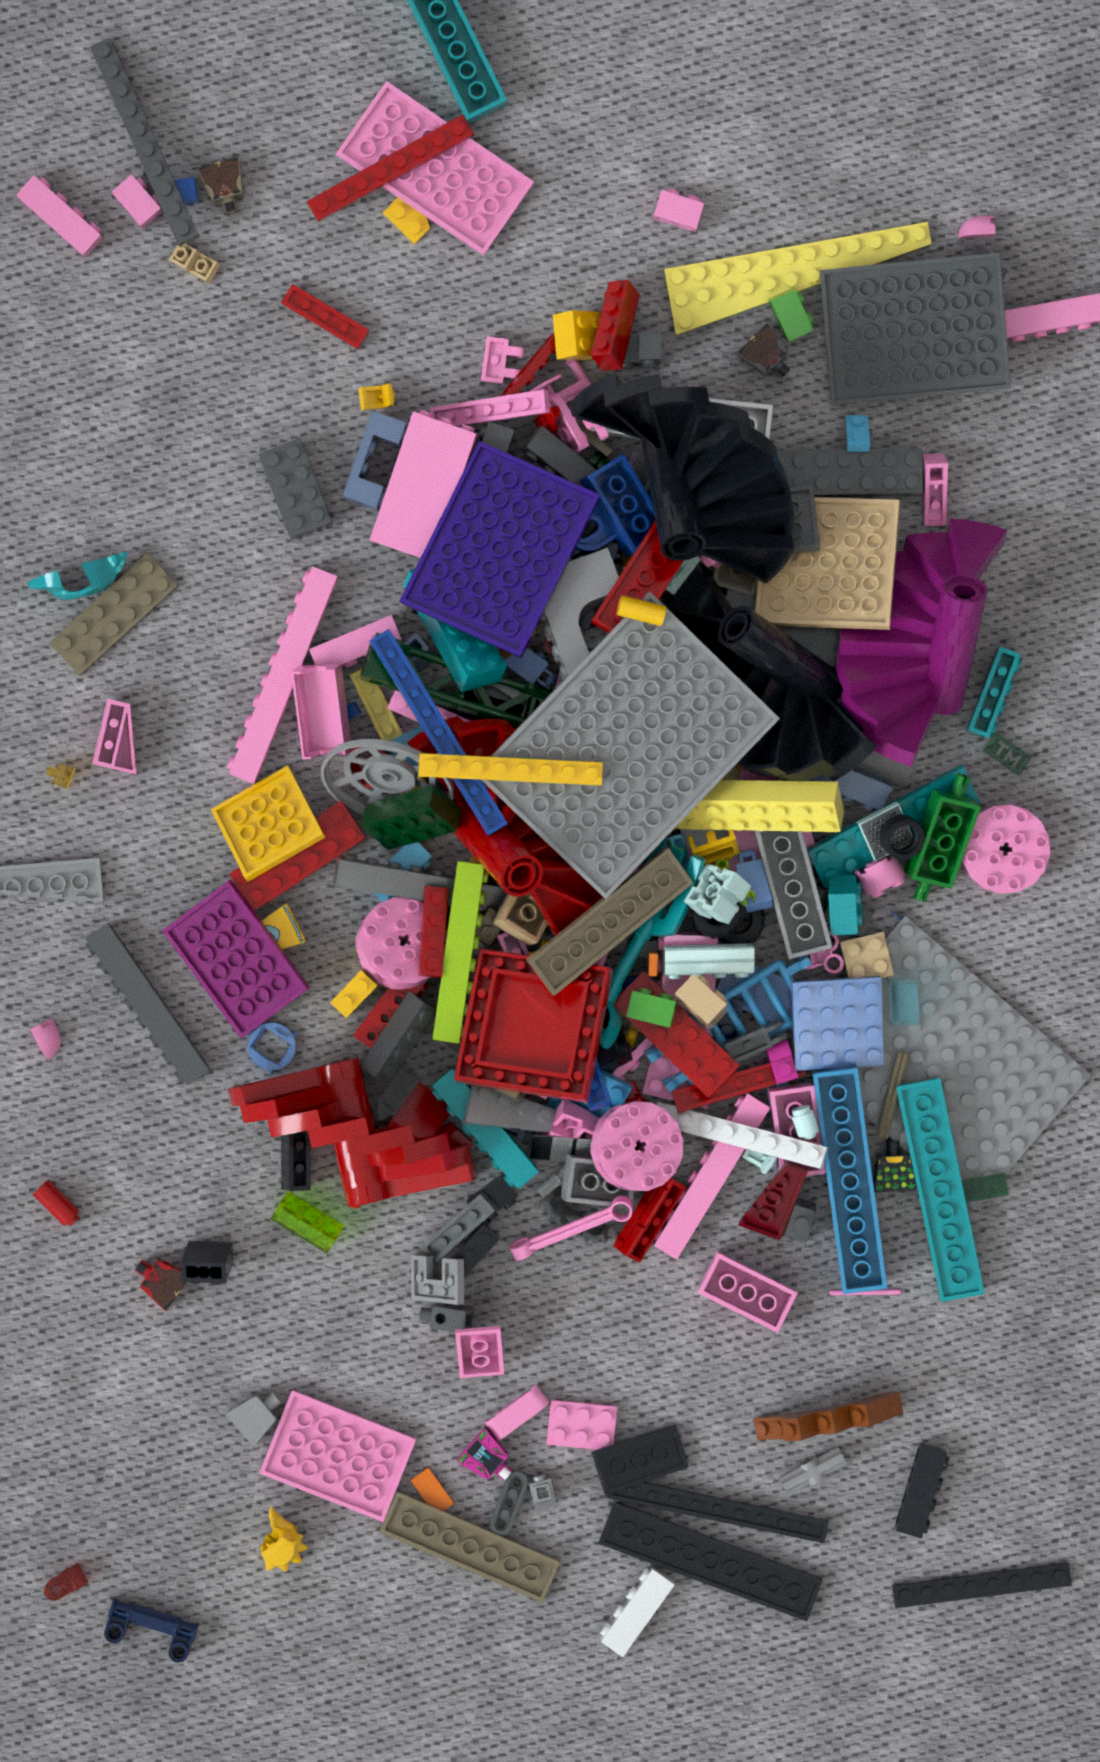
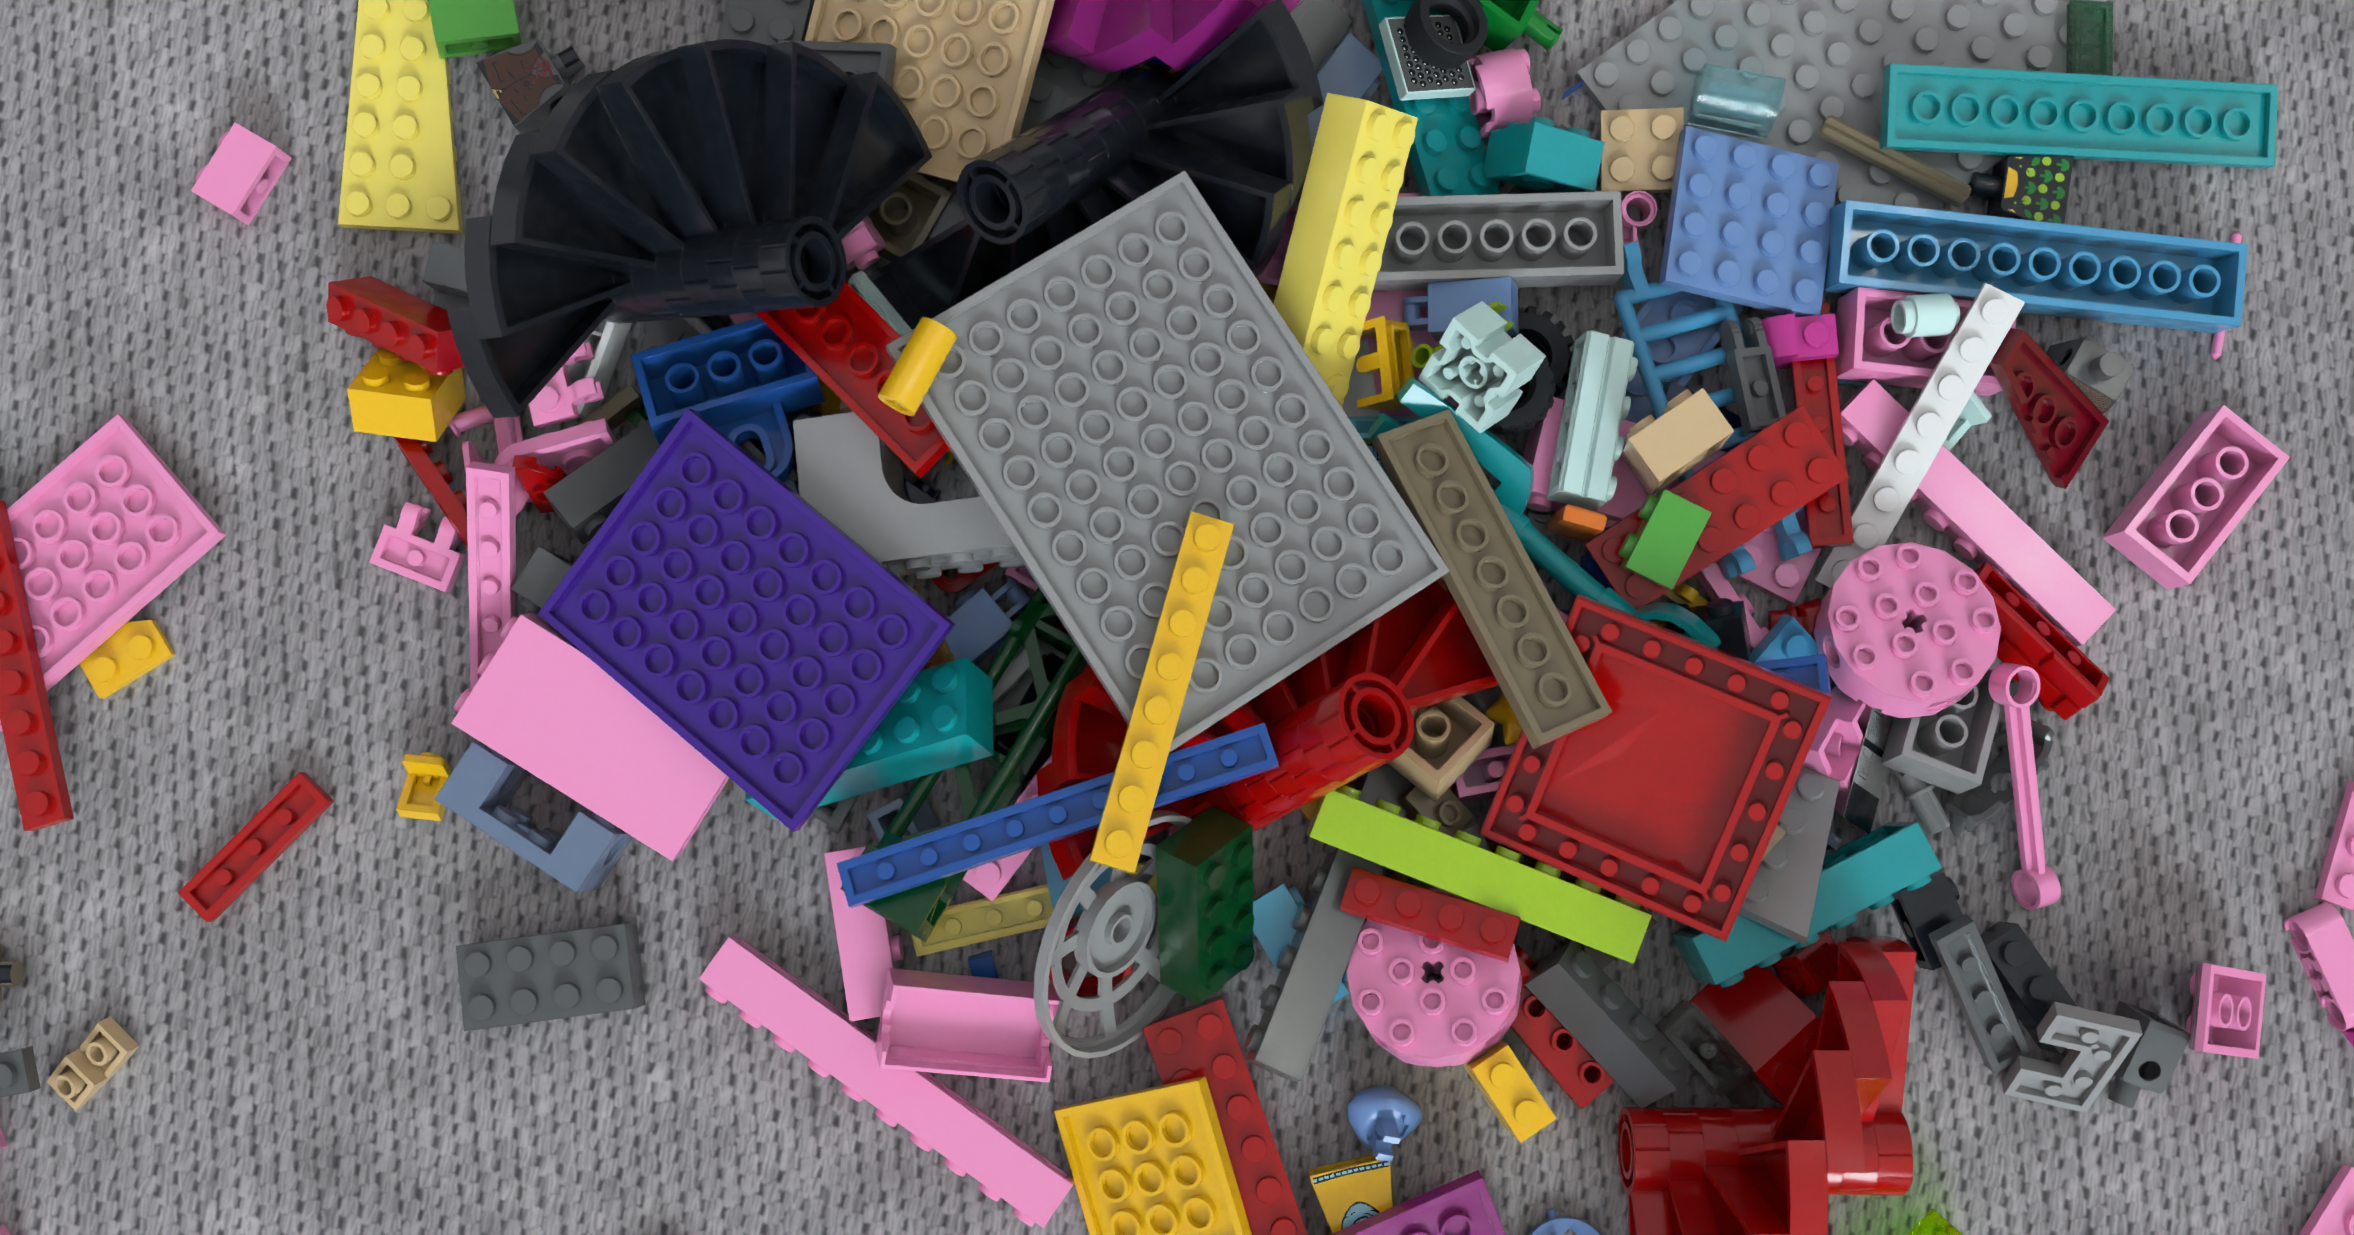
camera: 80 degrees left, 5 degrees down
(323, 935) = (1383, 1118): none -> medium blue piece

